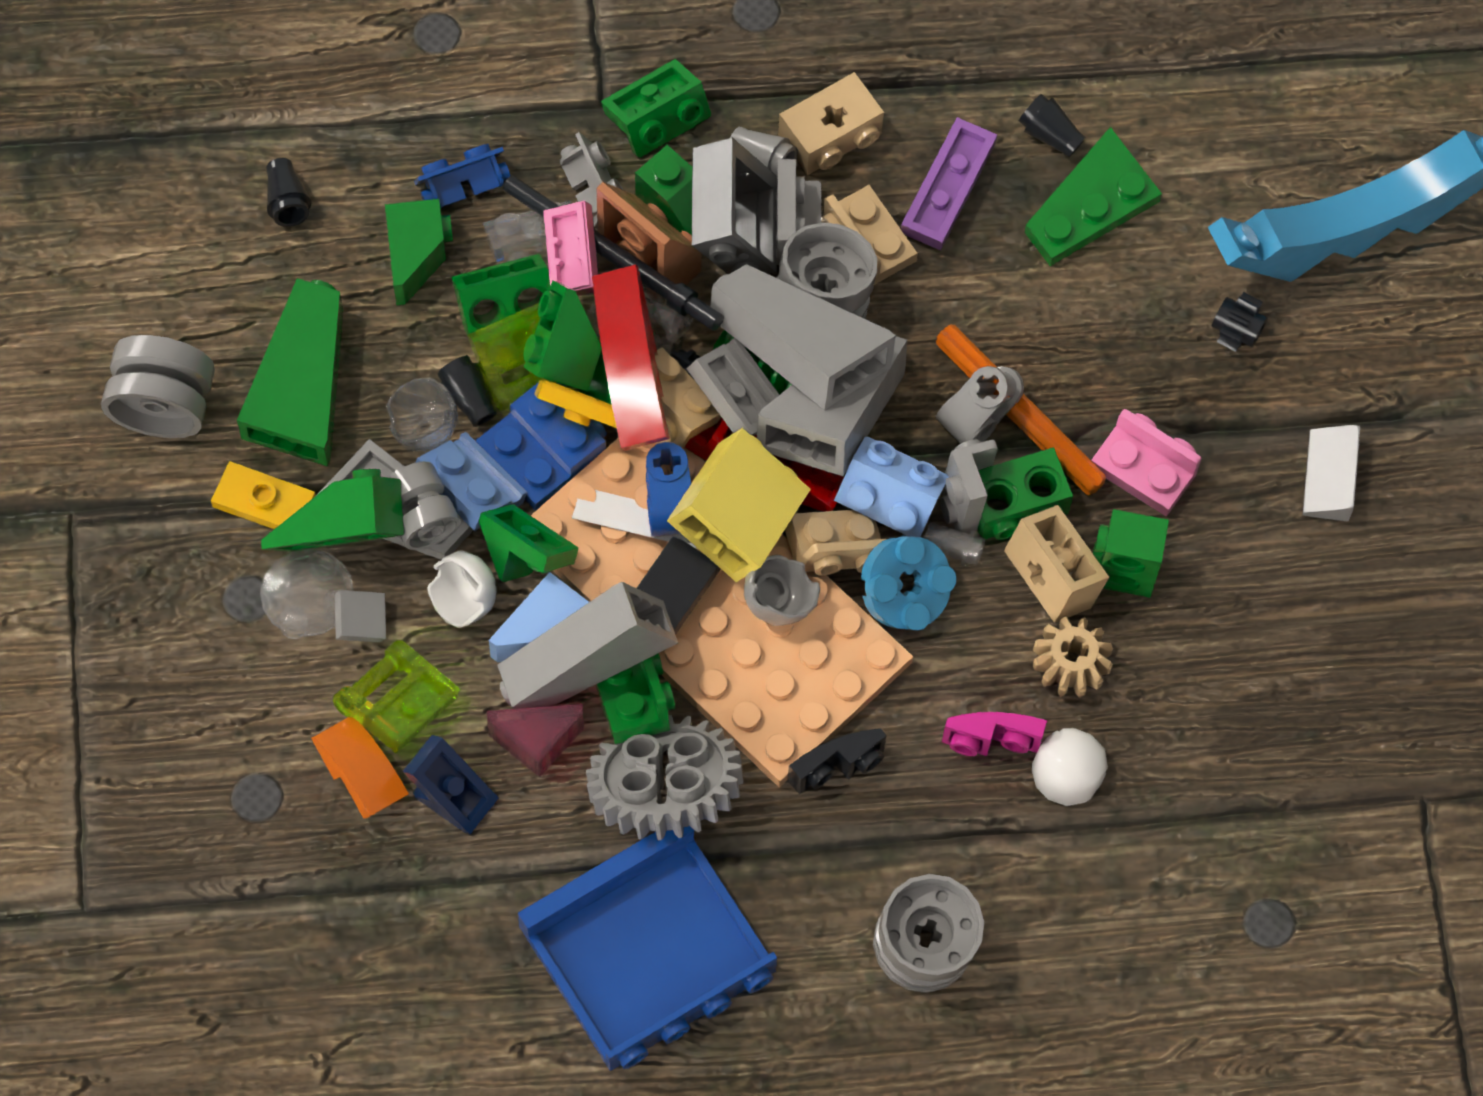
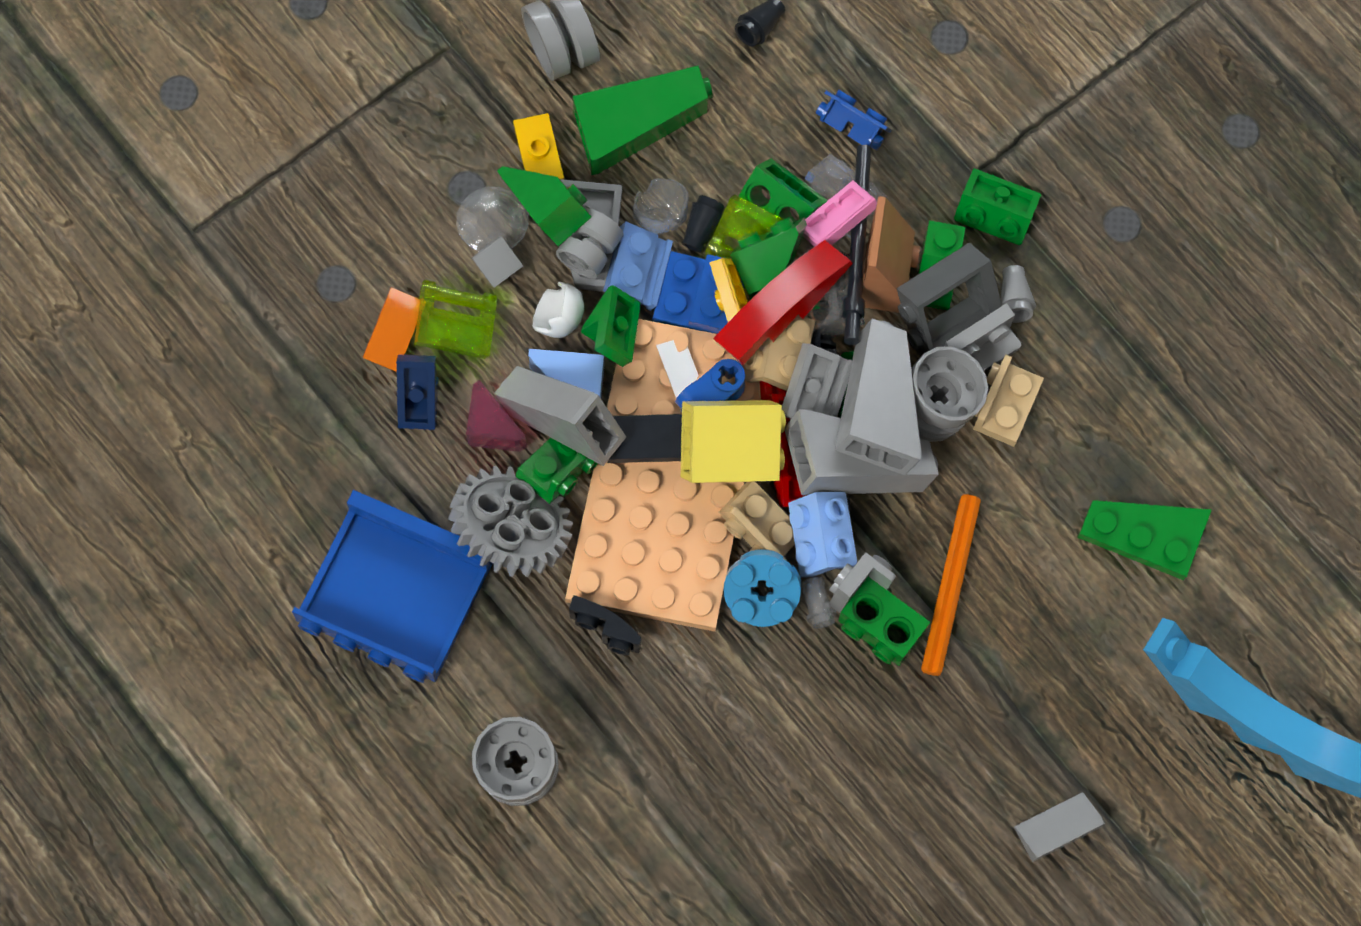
camera: 55 degrees right, 5 degrees up
(415, 244) = (780, 122): green slope -> none
(587, 165) = (921, 191): light grey hinge -> none
(780, 591) = (691, 508): light grey hair -> none
(832, 123) = (1087, 319): tan brick -> none
(948, 183) = (1084, 429): medium lavender plate -> none
(974, 732) = (690, 708): dark pink slope -> none
(975, 409) = (931, 555): light grey piece -> none
(1051, 125) = (1181, 469): black cone -> none
(1056, 563) = (846, 679): tan brick -> none
(1056, 648) = (797, 723): tan gear -> none
(1069, 766) = (710, 783): white hair -> none
(1131, 551) = (888, 722): green brick -> none
(1147, 461) = (972, 694): bright pink bracket -> none
(1239, 321) = (1125, 690): black gear -> none

